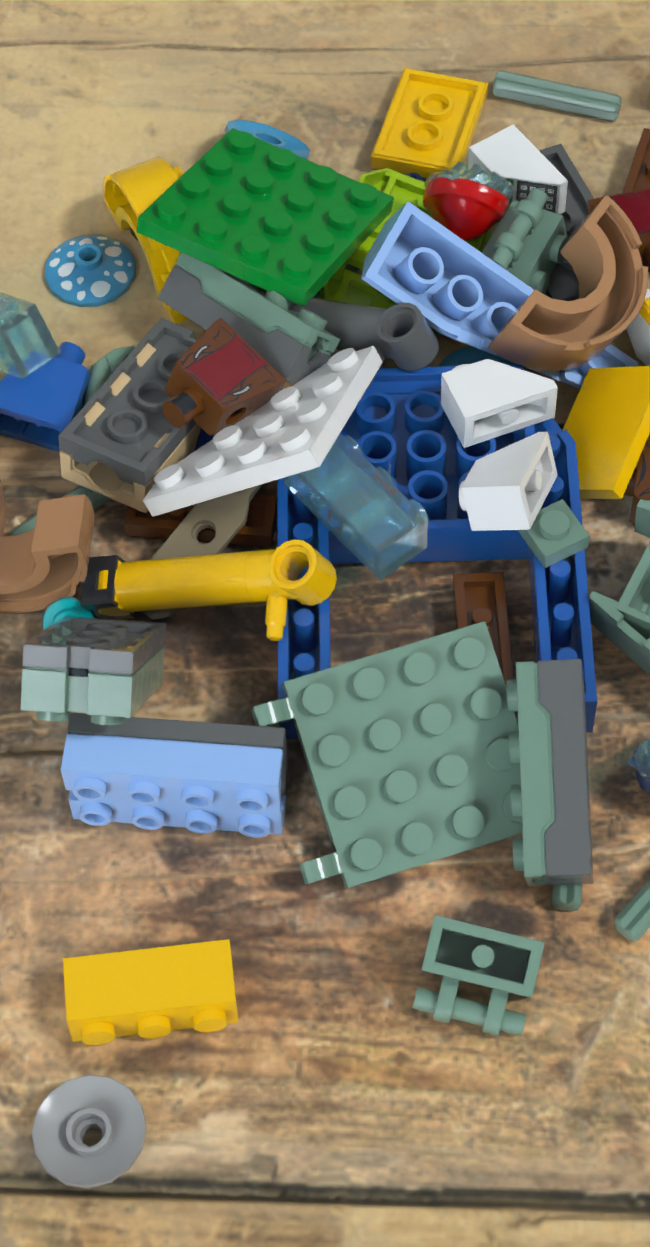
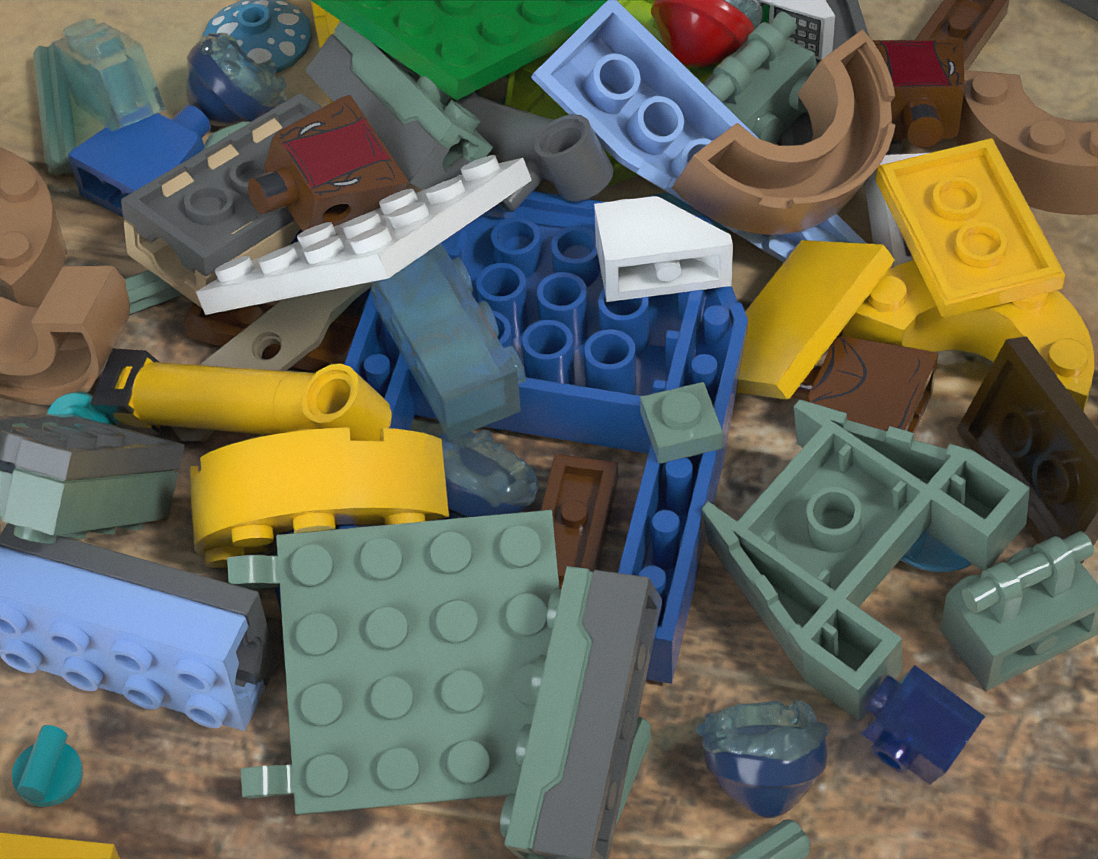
camera: 15 degrees right, 5 degrees down
(91, 318) = (229, 83): none -> hair
(146, 895) = (48, 769): none -> teal plate
(289, 637) = (310, 486): none -> yellow brick
(400, 610) = (485, 477): none -> clear light blue hair
(509, 485) = (639, 351): white slope -> none

